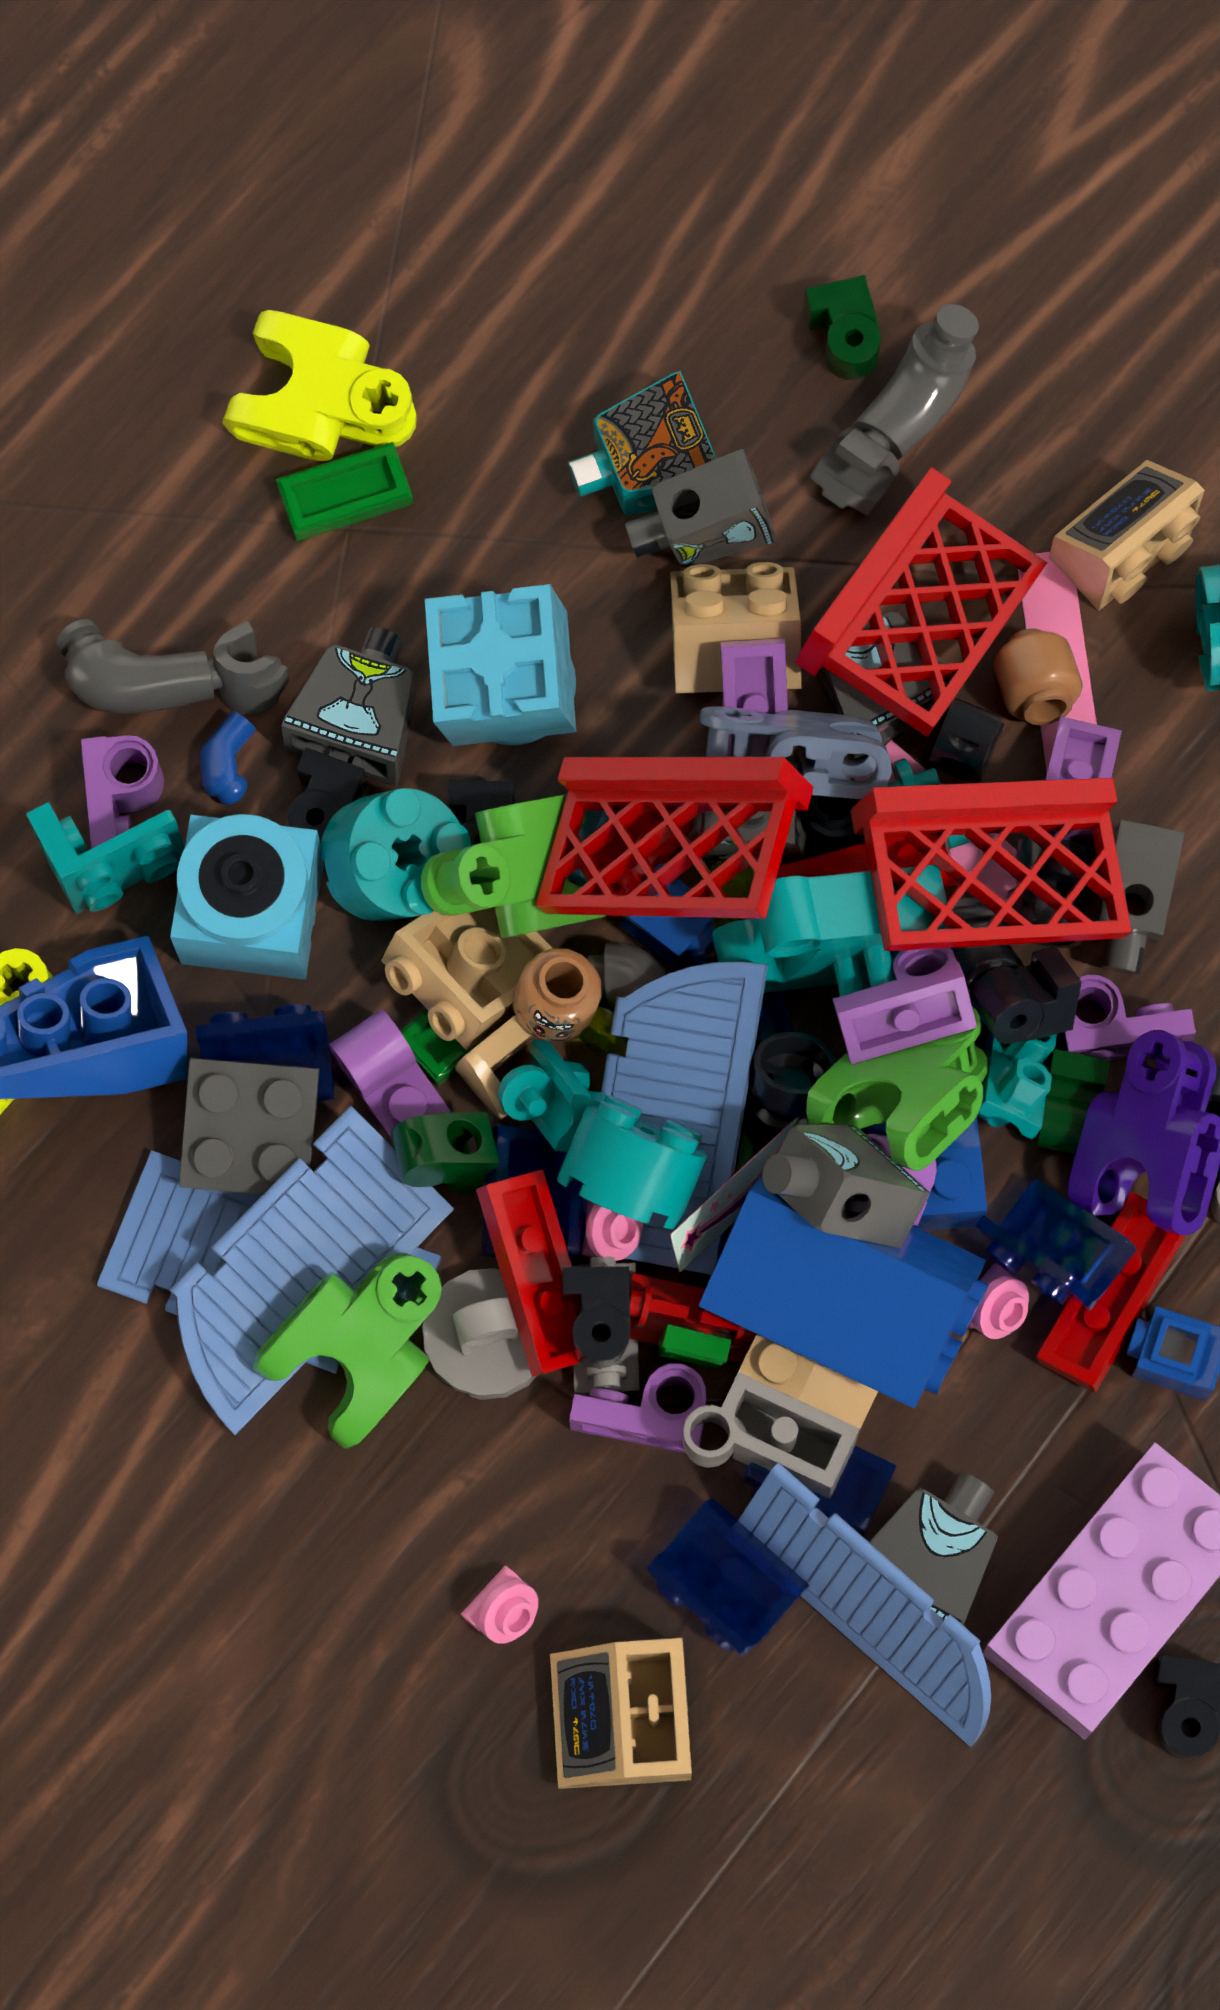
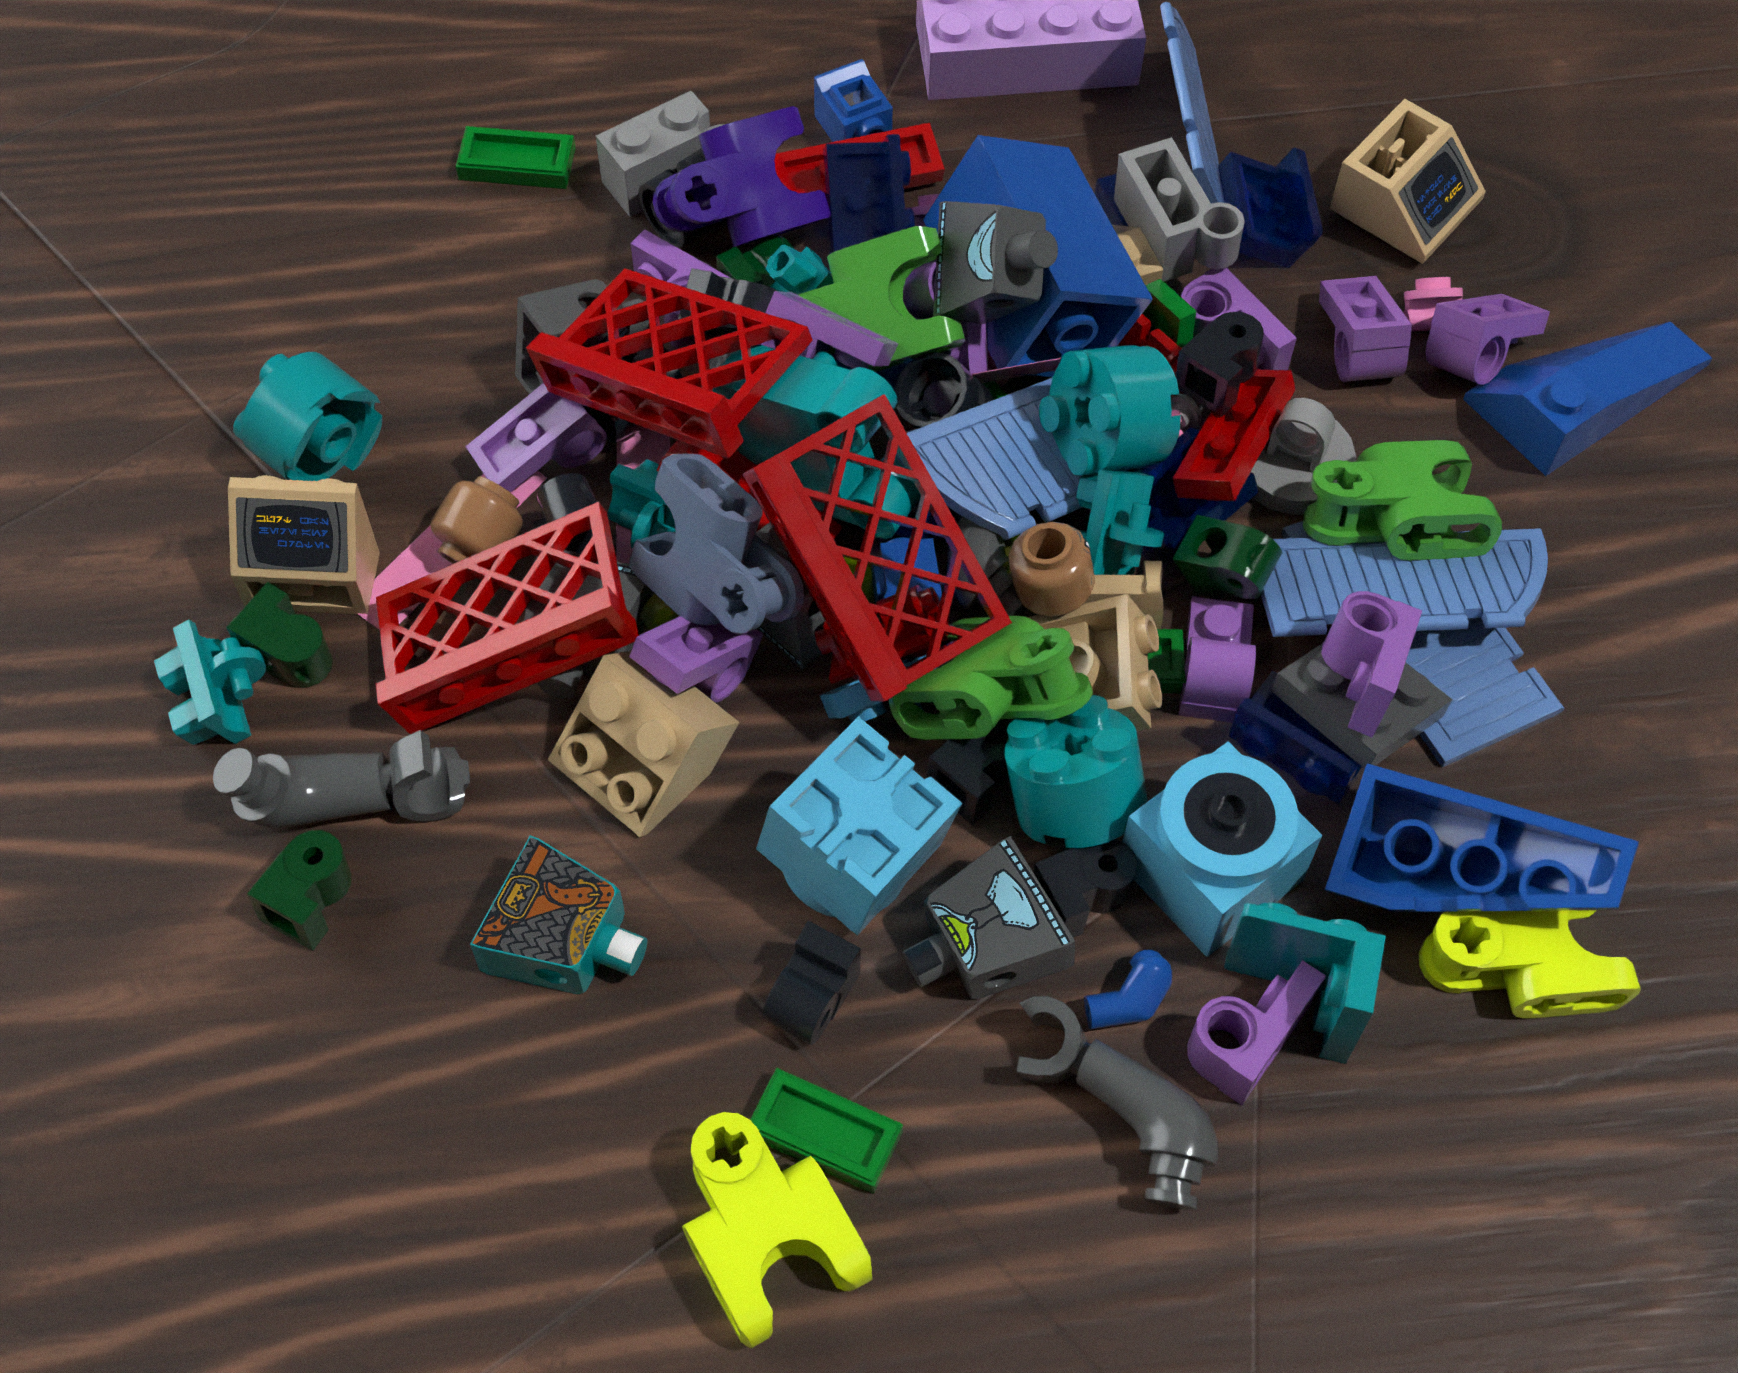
camera: 140 degrees left, 15 degrees down
(227, 1089) = (1370, 649): none -> medium lavender plate
(311, 1618) = (1580, 394): none -> blue wedge
(433, 1591) = (1475, 334): none -> medium lavender plate
(440, 559) = (813, 983): none -> black leg
(539, 1516) = (1369, 329): none -> medium lavender plate
(706, 513) = (574, 816): dark grey torso -> none
(942, 1544) = (1119, 117): dark grey torso -> none
(1069, 467) = (288, 641): none -> dark green leg
(1077, 394) = (218, 680): none -> teal hips

